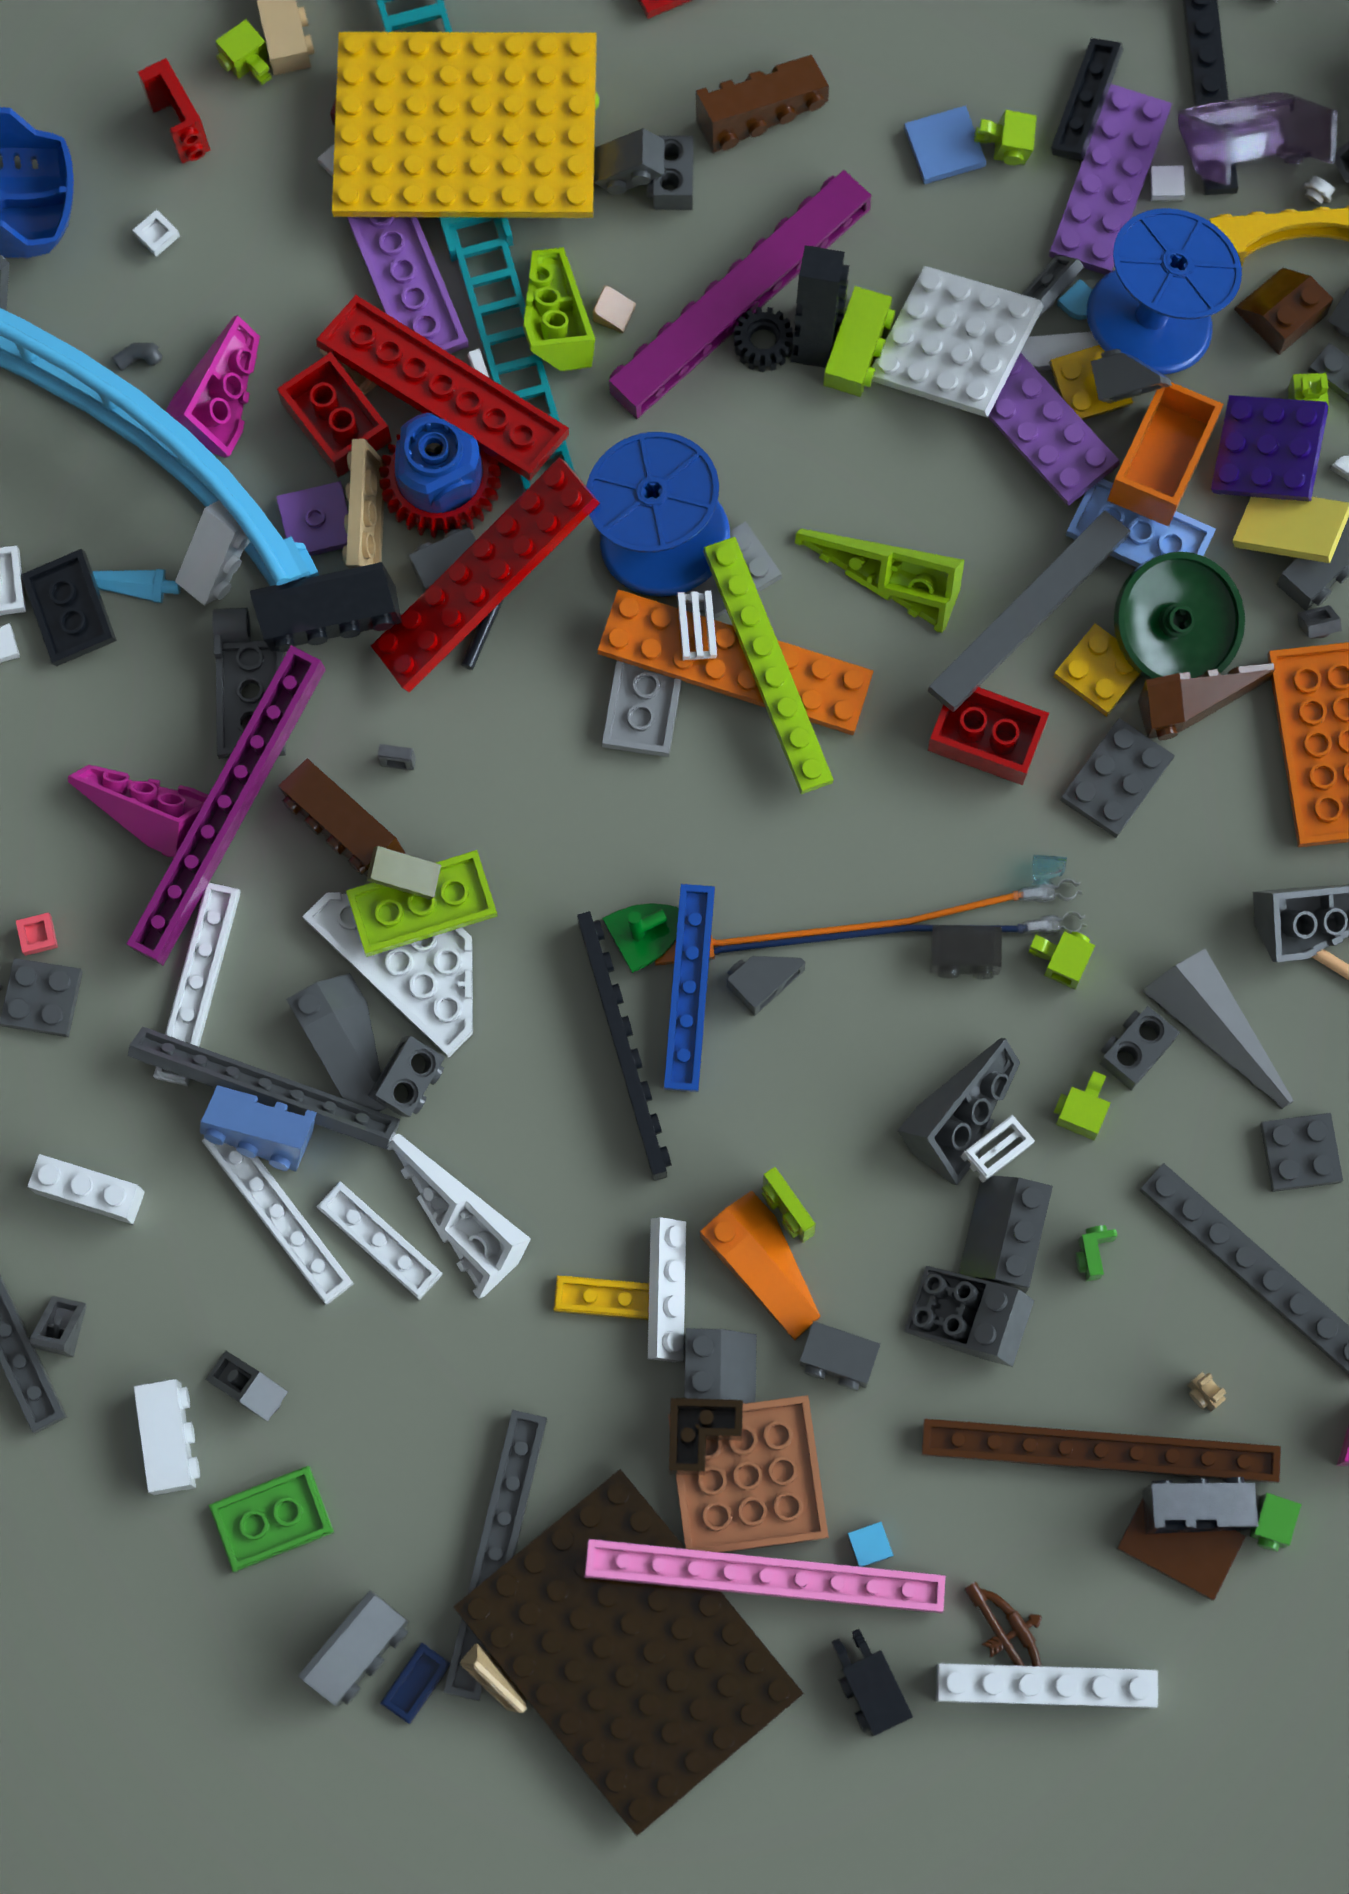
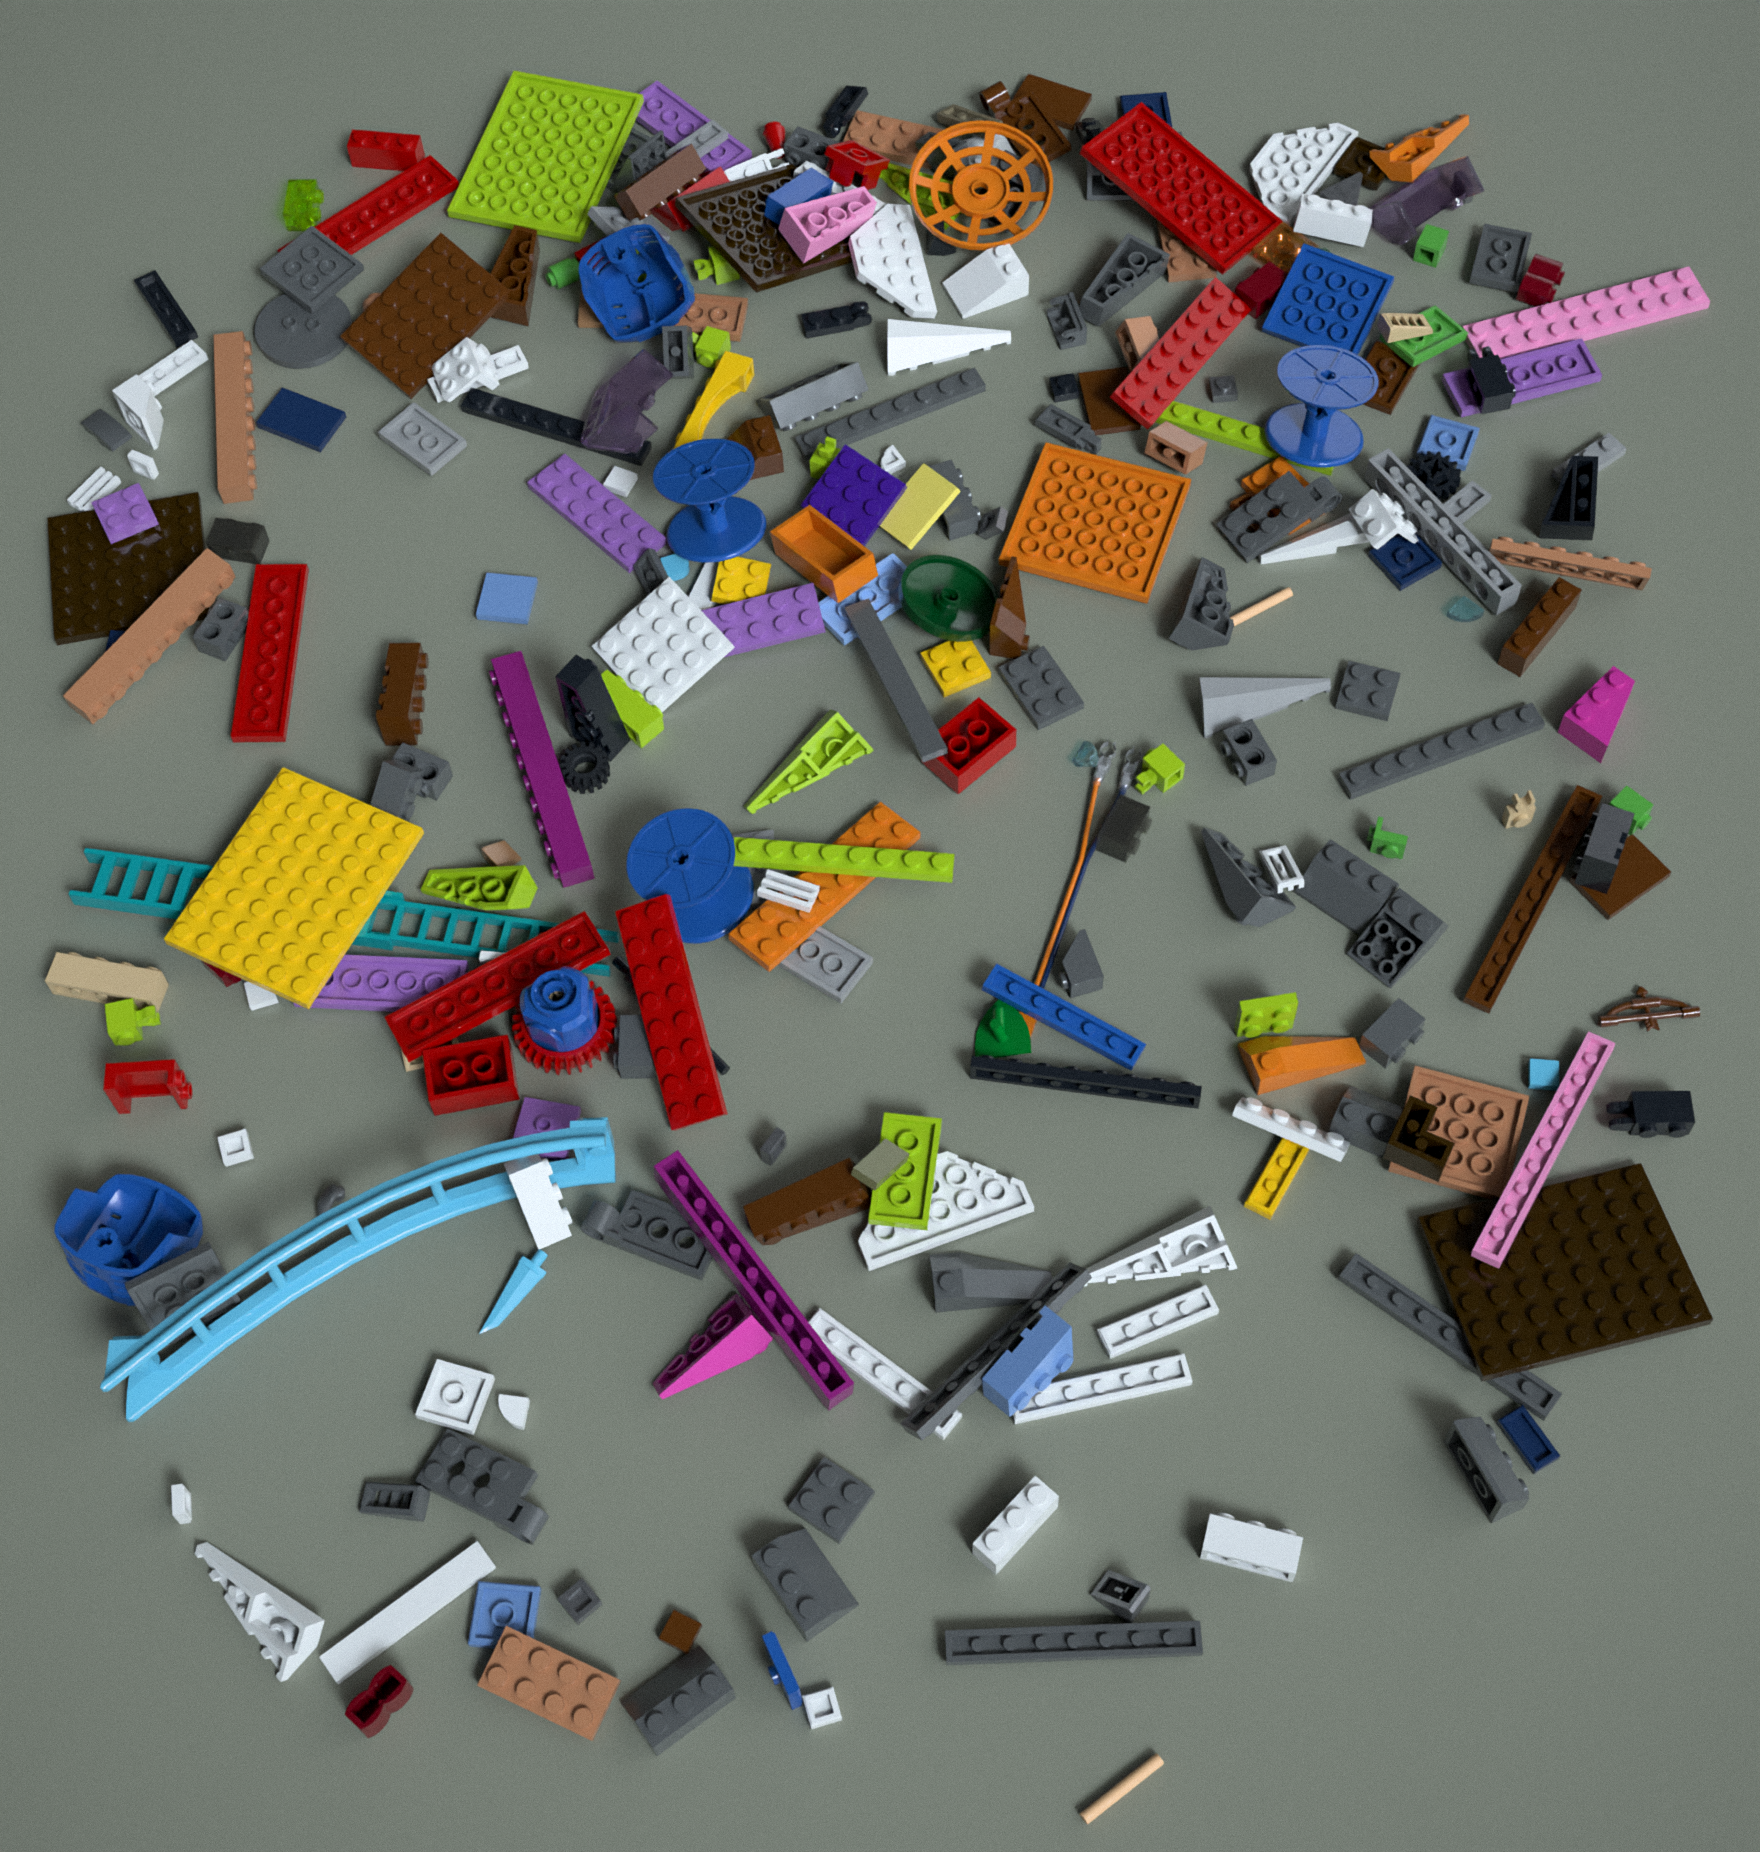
camera: 65 degrees left, 15 degrees down
(36, 934) = (777, 1479): coral plate -> none
(68, 607) = (513, 1340): black plate -> none
(215, 391) = (388, 1151): dark pink wedge -> none
(247, 1385) = (1234, 1466): dark grey slope -> none
(271, 1519) = (1351, 1496): bright green tile -> none
(327, 607) = (633, 1134): black slope -> none
(366, 507) = (559, 1080): tan plate -> none
(400, 1071) = (1037, 1242): dark grey brick -> none
(493, 1678) = (1552, 1373): tan slope -> none
(1012, 136) = (530, 553): lime brick -> none
(1047, 1685) = (1696, 1000): white arch -> none
(1082, 1110) = (1277, 804): lime brick -> none
(1087, 98) = (529, 499): black plate -> none
(1124, 376) = (756, 549): dark grey slope -> none
(1318, 190) = (681, 398): white plate -> none

